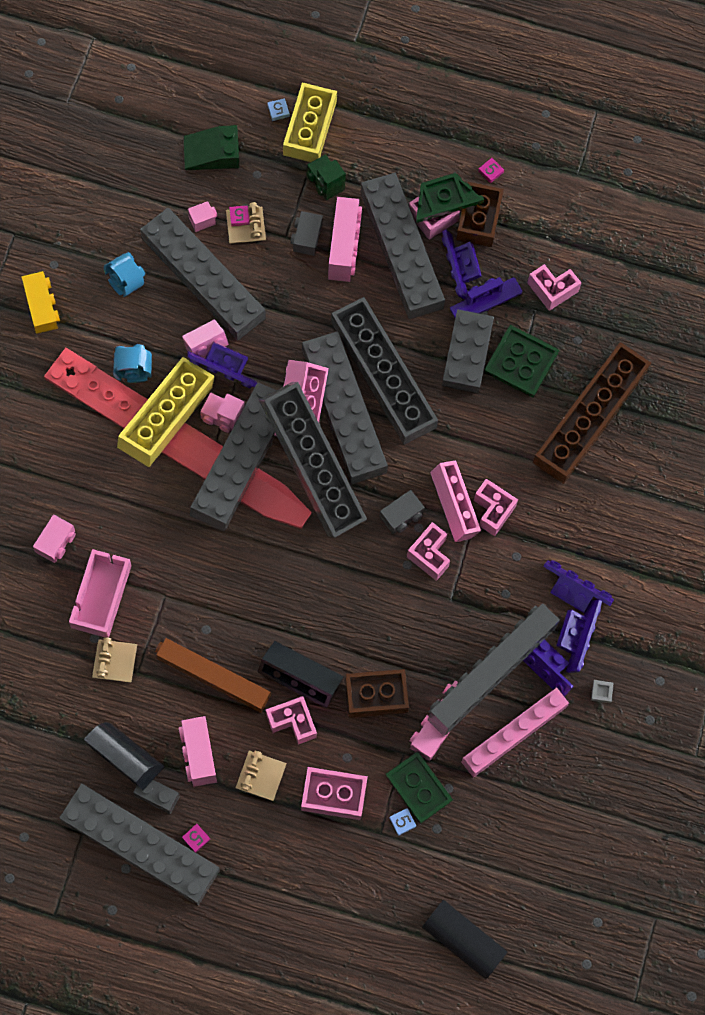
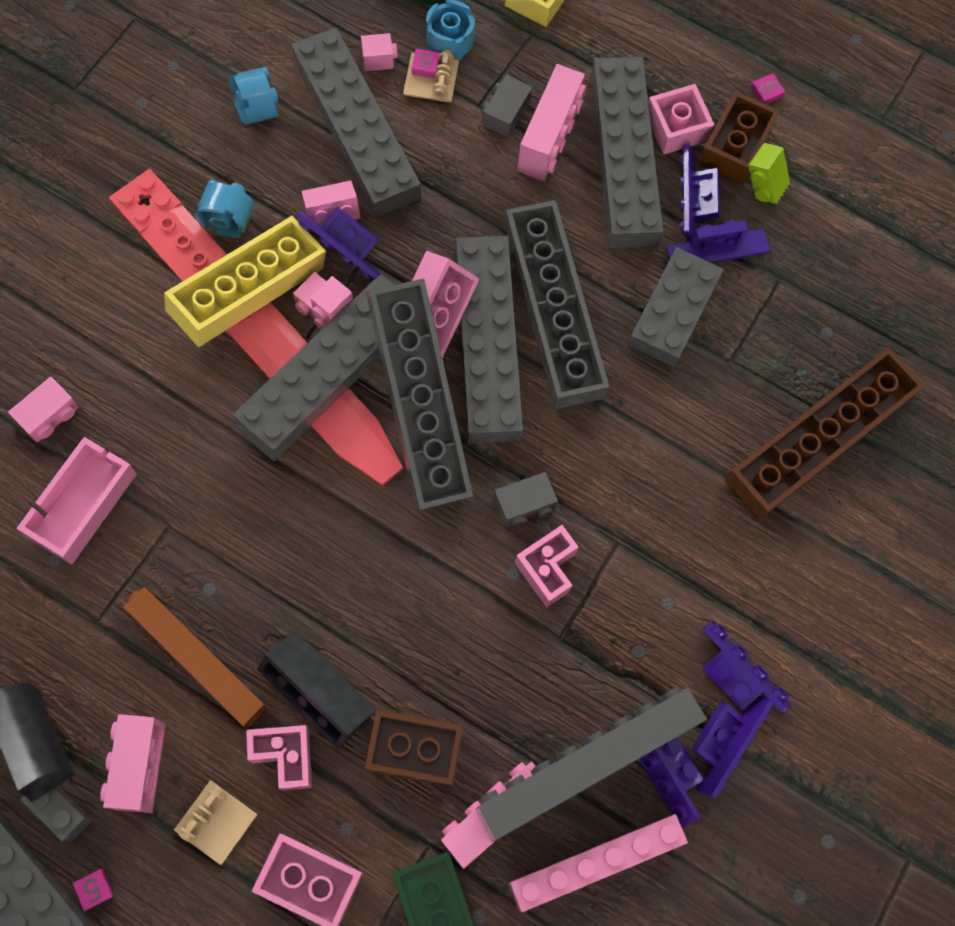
camera: 15 degrees right, 0 degrees up
(40, 302) = (136, 104): yellow brick -> none
(114, 660) = (69, 598): tan hinge -> none
(250, 185) = (450, 28): none -> dark azure brick
(327, 176) = (552, 41): dark green brick -> none
(445, 196) = (699, 99): dark green wing -> none
(455, 501) = (603, 504): bright pink brick -> none
(498, 506) = (661, 524): bright pink brick -> none
(508, 237) = (769, 173): none -> lime brick
(521, 361) = (745, 339): dark green plate -> none
(553, 290) = (812, 257): bright pink brick -> none
(602, 691) = (740, 835): light grey plate -> none

